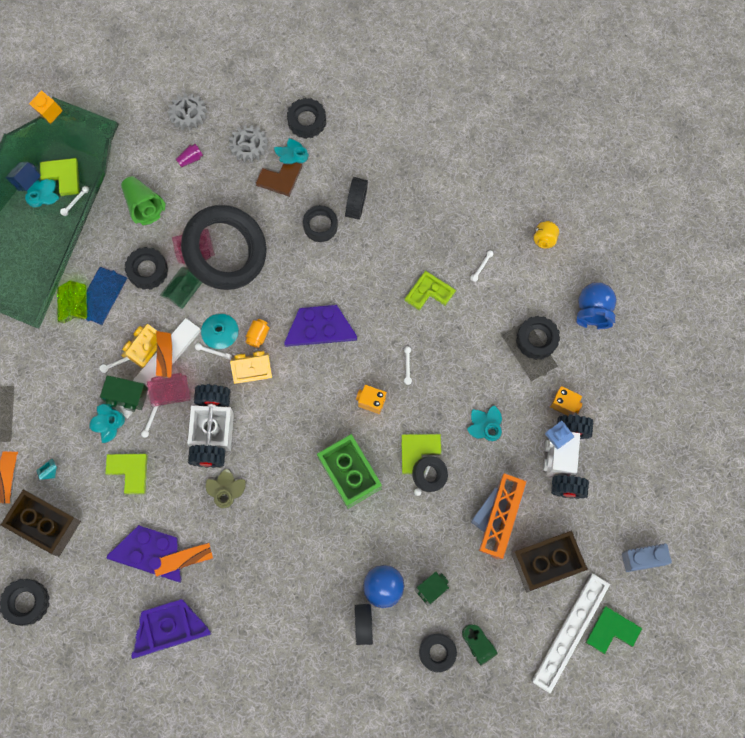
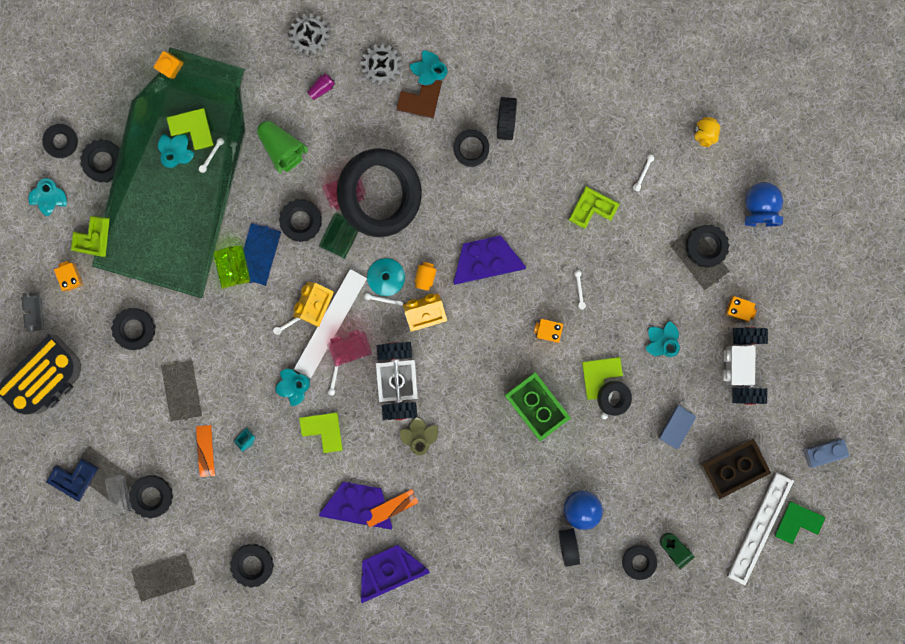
camera: 10 degrees left, 15 degrees up
(23, 176) = (155, 138): dark blue brick -> none
(40, 523) = (252, 492): dark brown brick -> none
(124, 393) = (306, 356): dark green brick -> none
(164, 354) = (338, 312): orange sticker -> none
(303, 105) = (438, 11): black tyre -> none
(432, 588) = (629, 507): dark green brick -> none
(503, 535) = (692, 432): orange fence -> none
(559, 435) = (735, 351): medium blue tile -> none

